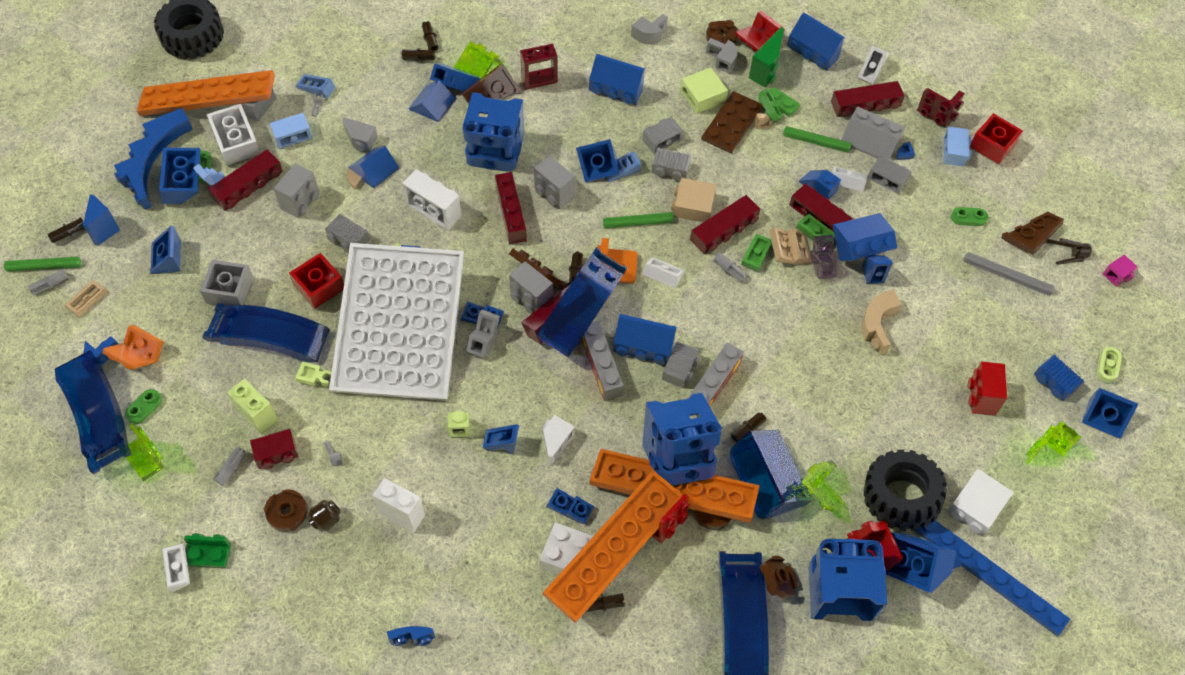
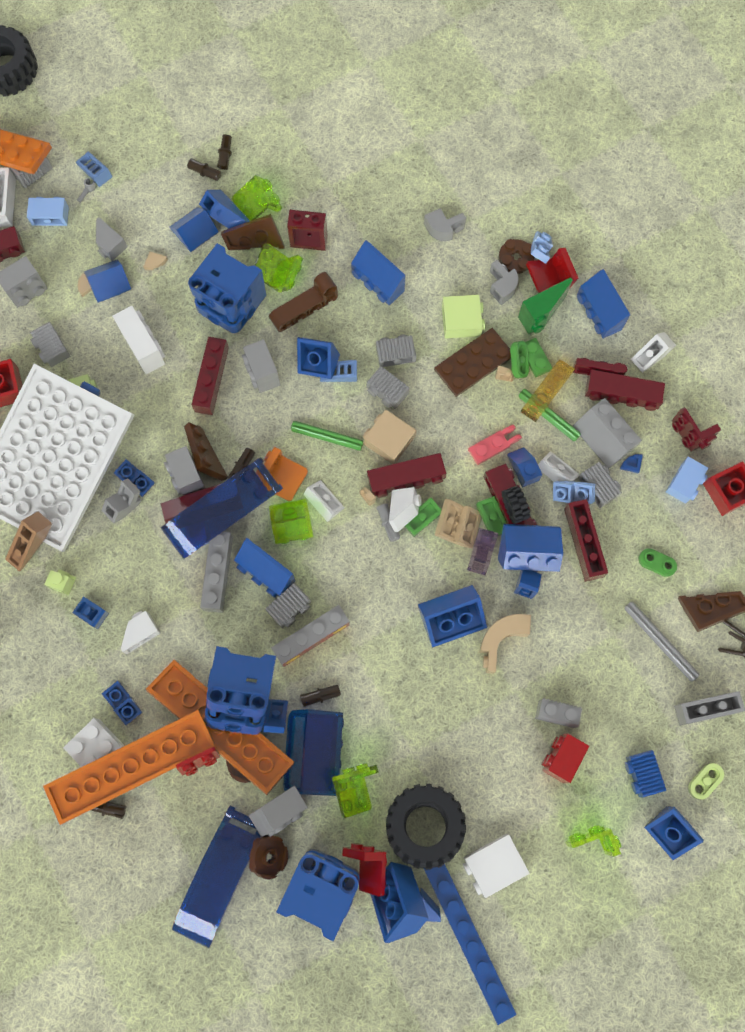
camera: 25 degrees right, 15 degrees up
(409, 138) = (154, 261): none -> tan tile
(411, 399) = (28, 539): none -> medium nougat slope
(533, 106) = (277, 268): none -> clear neon green bracket
(562, 128) = (305, 303): none -> reddish brown beam
(646, 296) = (290, 521): none -> clear neon green slope
(701, 253) = (368, 496): none -> tan tile
(725, 460) = (276, 716): none -> blue slope
(739, 17) = (541, 246): none -> light blue slope
(739, 246) = (403, 507): none -> white slope
(770, 531) = (278, 812): none -> light grey brick
(784, 177) = (493, 445): none -> coral hinge
(807, 119) = (547, 390): none -> clear yellow plate
(825, 92) = (584, 366): none -> dark red hinge
(827, 318) = (452, 615): none -> blue slope
(835, 205) = (516, 504): none -> black tyre
(872, 186) = (573, 491): none -> light blue slope
(904, 218) = (586, 540): none -> dark red brick
(960, 358) = (558, 713): none -> light grey brick
(1078, 305) = (709, 708): none -> light grey brick

